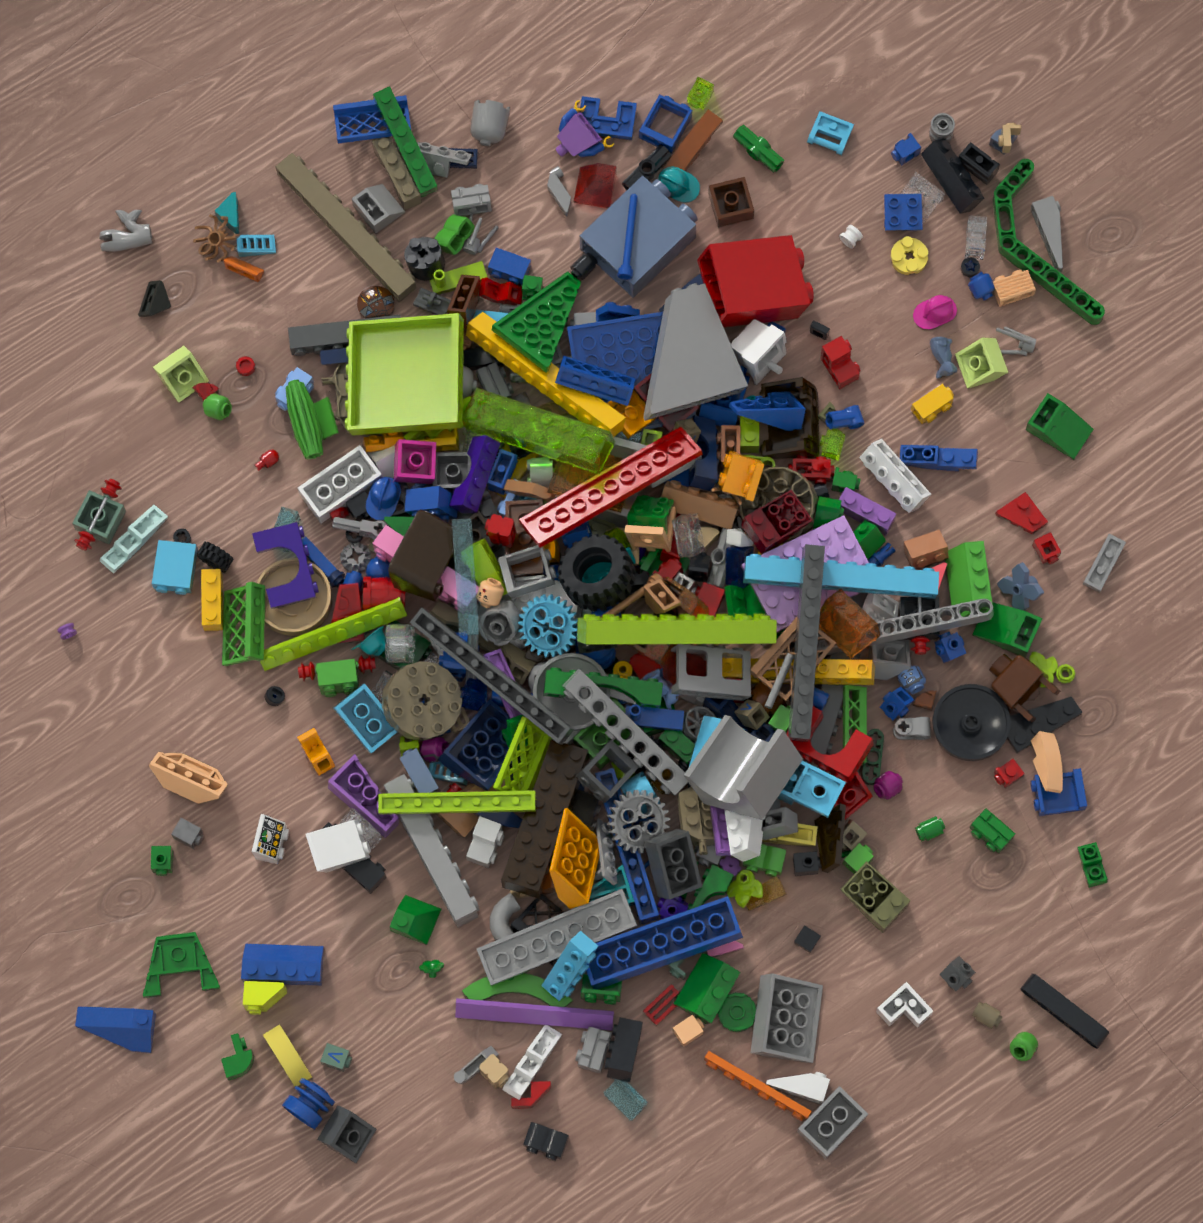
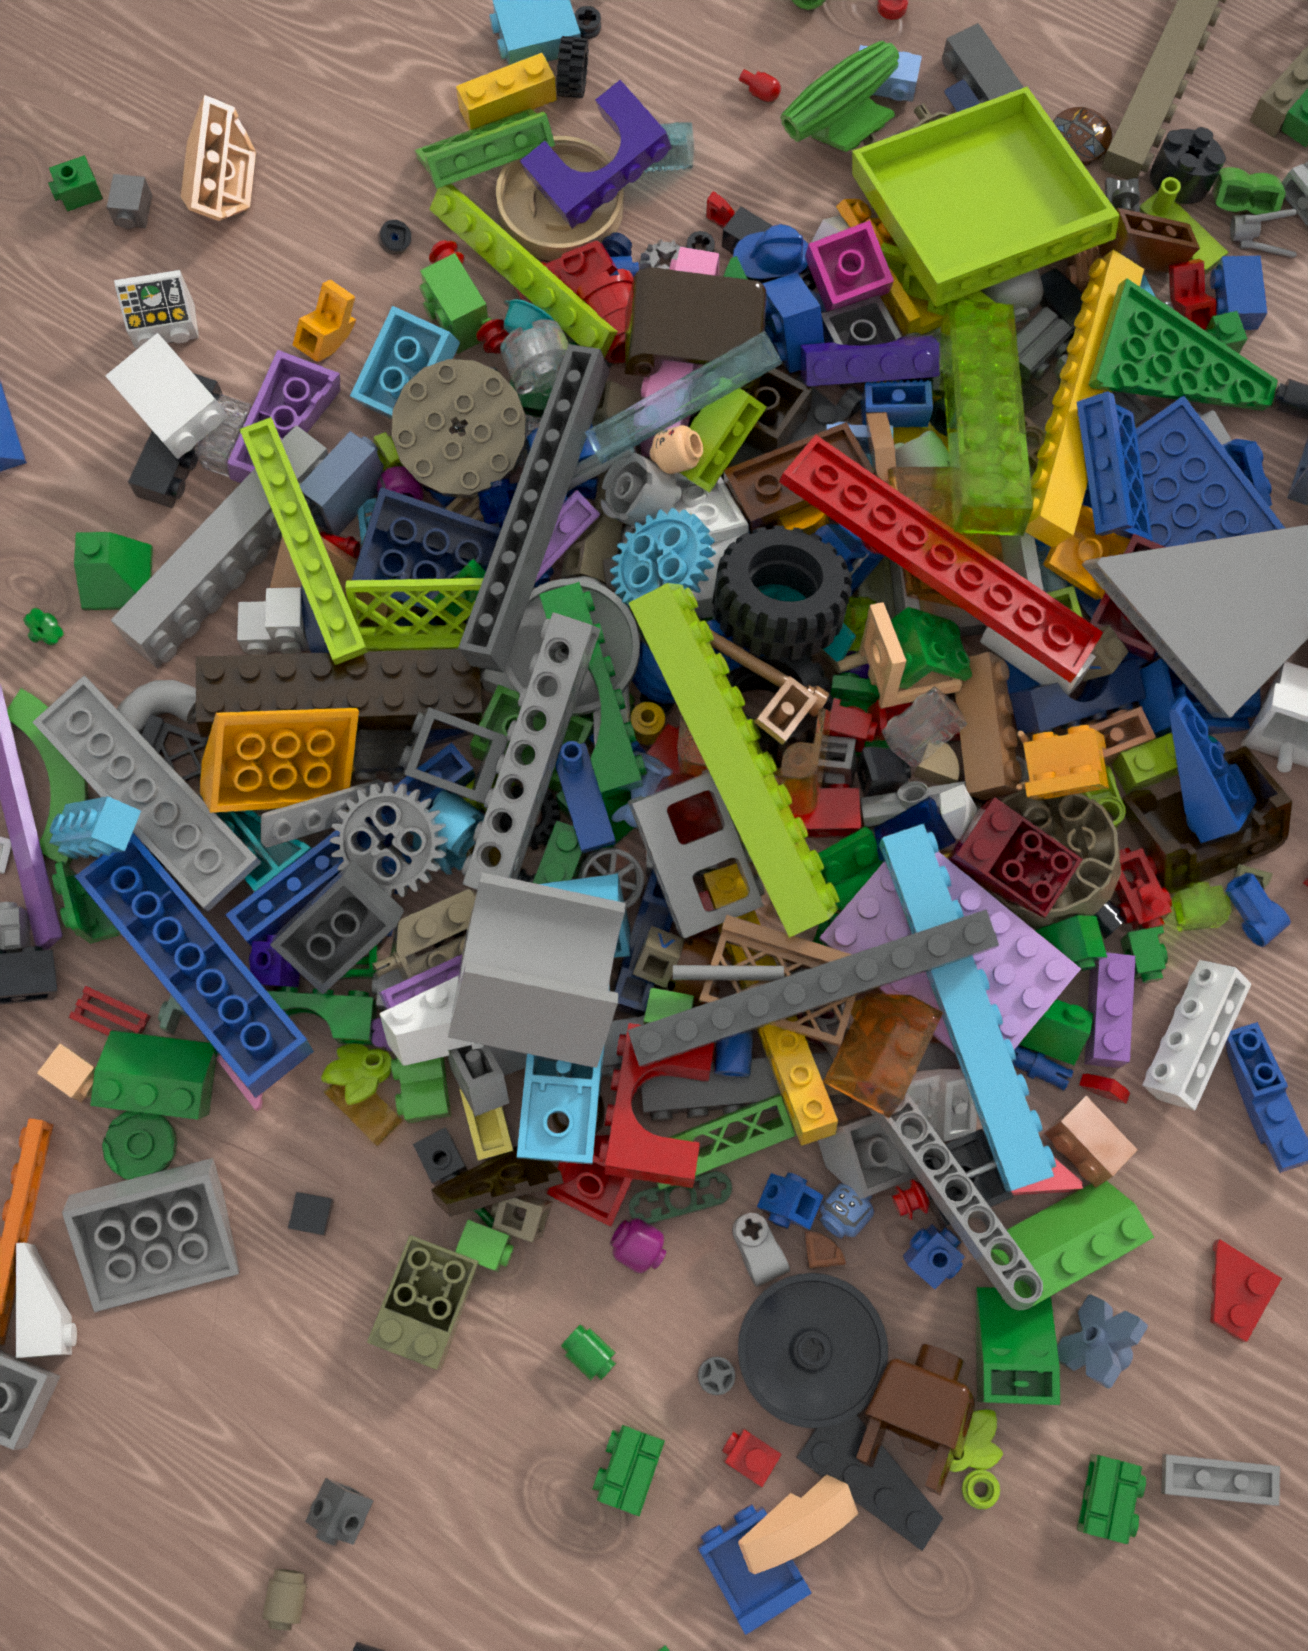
camera: 65 degrees right, 0 degrees up
(318, 558) = (640, 207): blue piece -> none
(339, 483) = (767, 184): white brick -> none
(364, 528) = (708, 232): light grey connector -> none
(377, 207) = (1234, 72): light grey slope -> none
(501, 530) = (787, 422): red brick -> none
(521, 556) = (722, 467): light grey window -> none
(902, 531) = (1105, 1087): none -> red tile
(905, 1002) = (251, 1437): white brick -> none
(964, 769) = (716, 1375): none -> dark grey wheel
(1047, 542) = (1208, 1358): red brick -> none
(1093, 616) = (1111, 1499): none -> green brick

